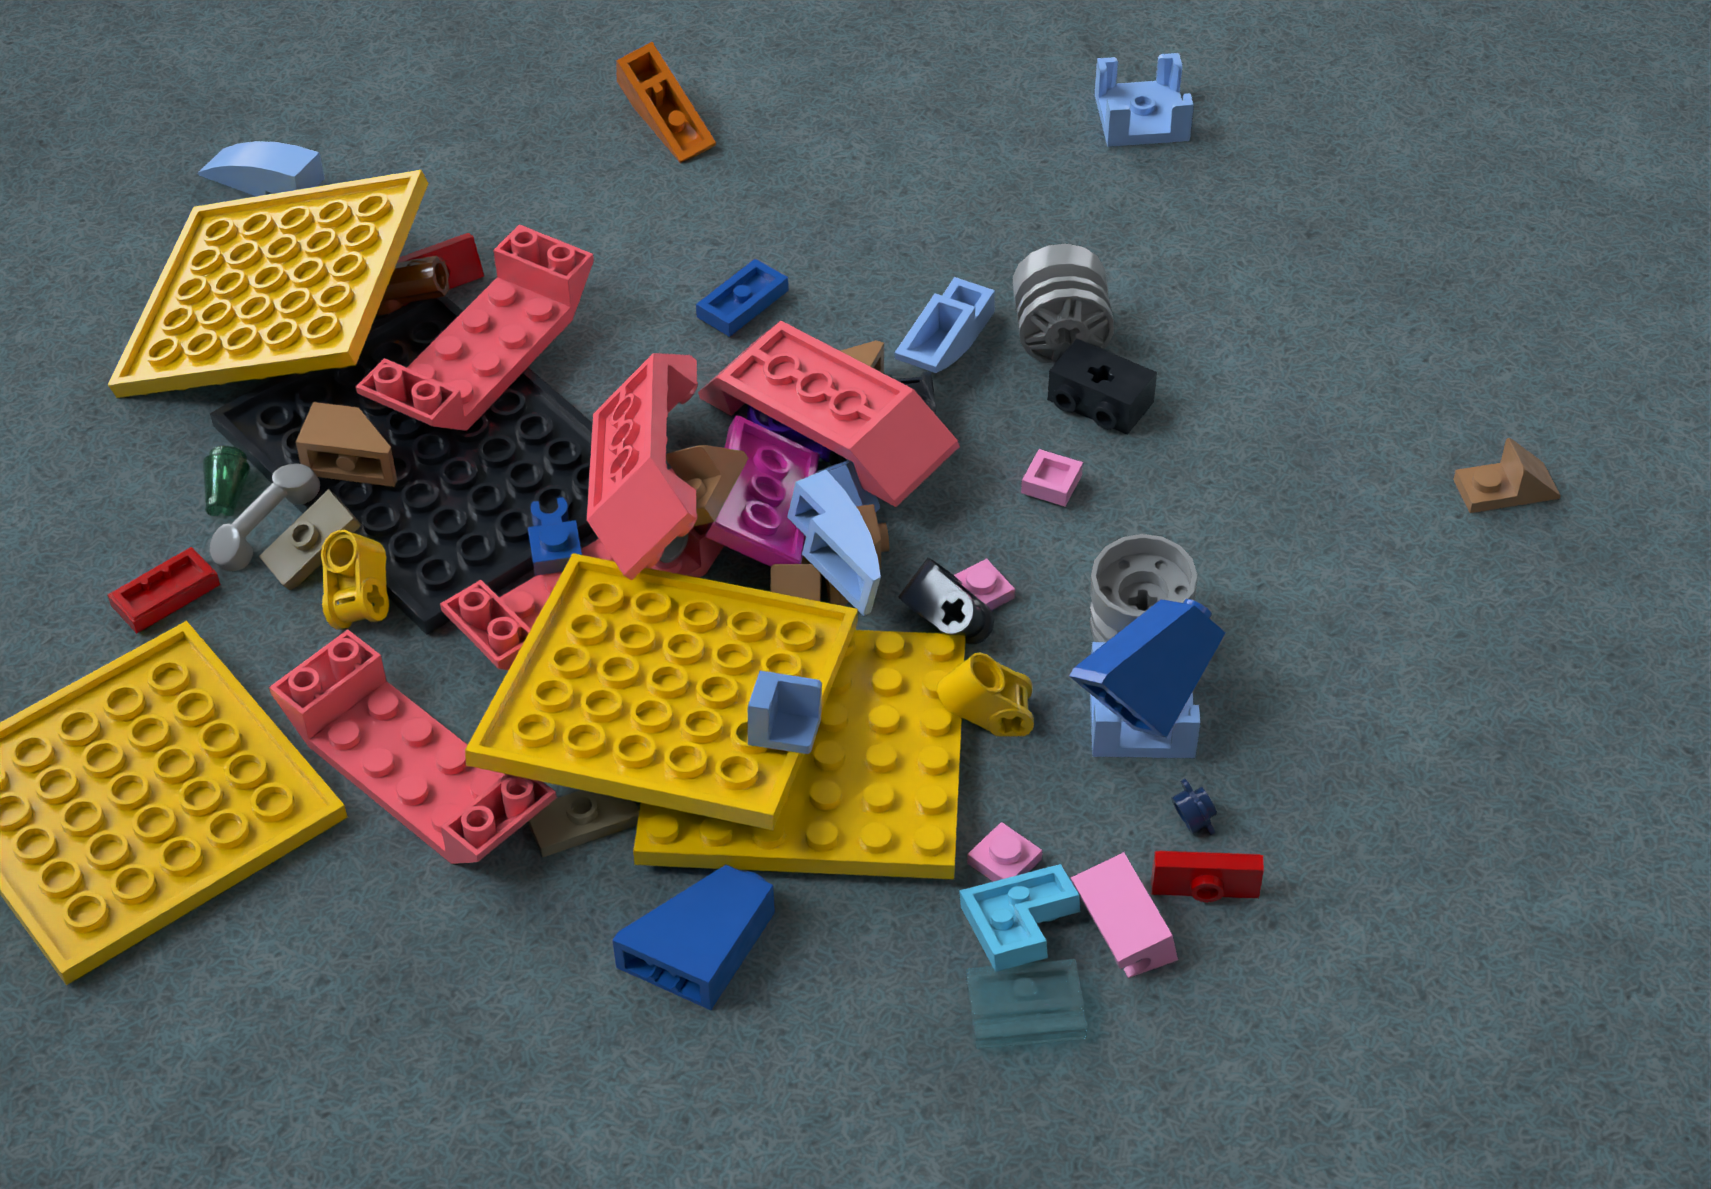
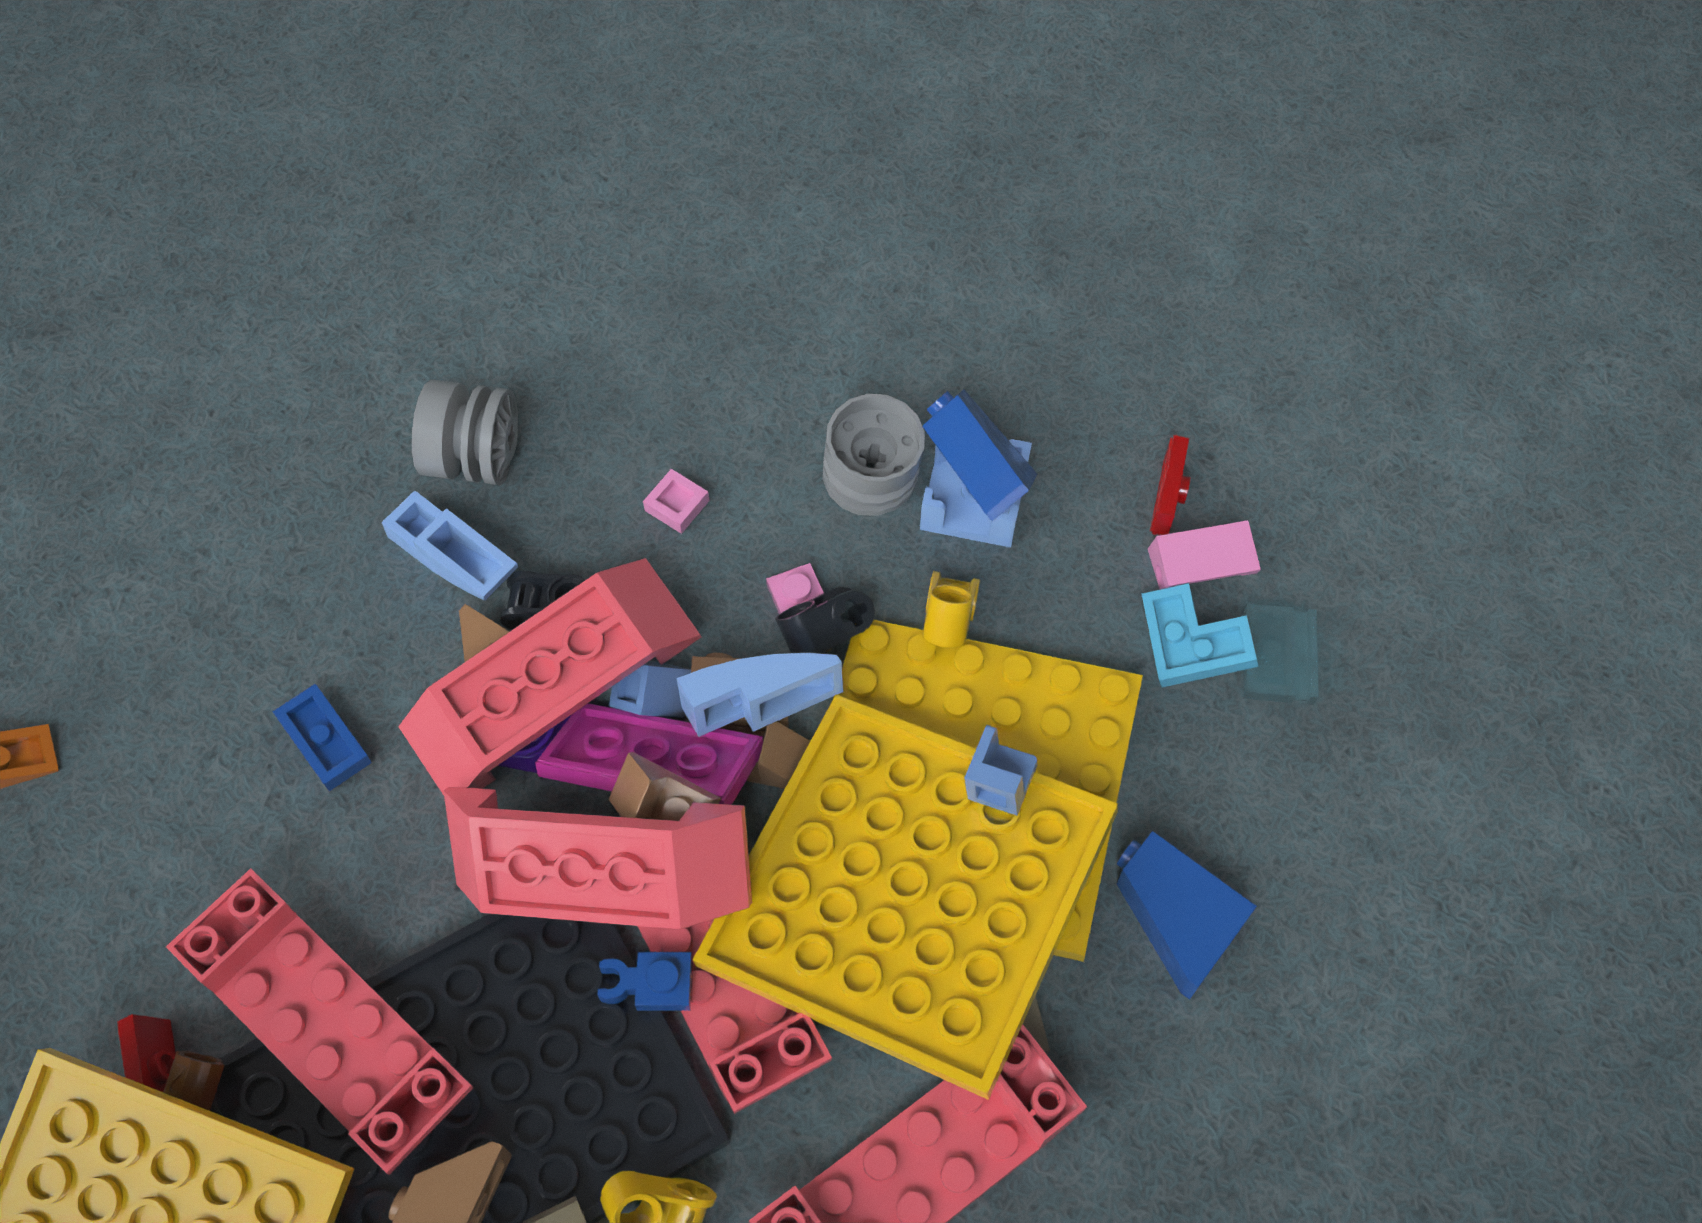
camera: 80 degrees left, 15 degrees up
(1004, 854) = (1116, 639): bright pink plate -> none
(1101, 386) = (573, 431): black brick -> none
(1143, 110) = (174, 305): light blue panel -> none
(1194, 808) = (1095, 478): dark blue plate -> none
(1512, 482) = (776, 165): medium nougat slope -> none

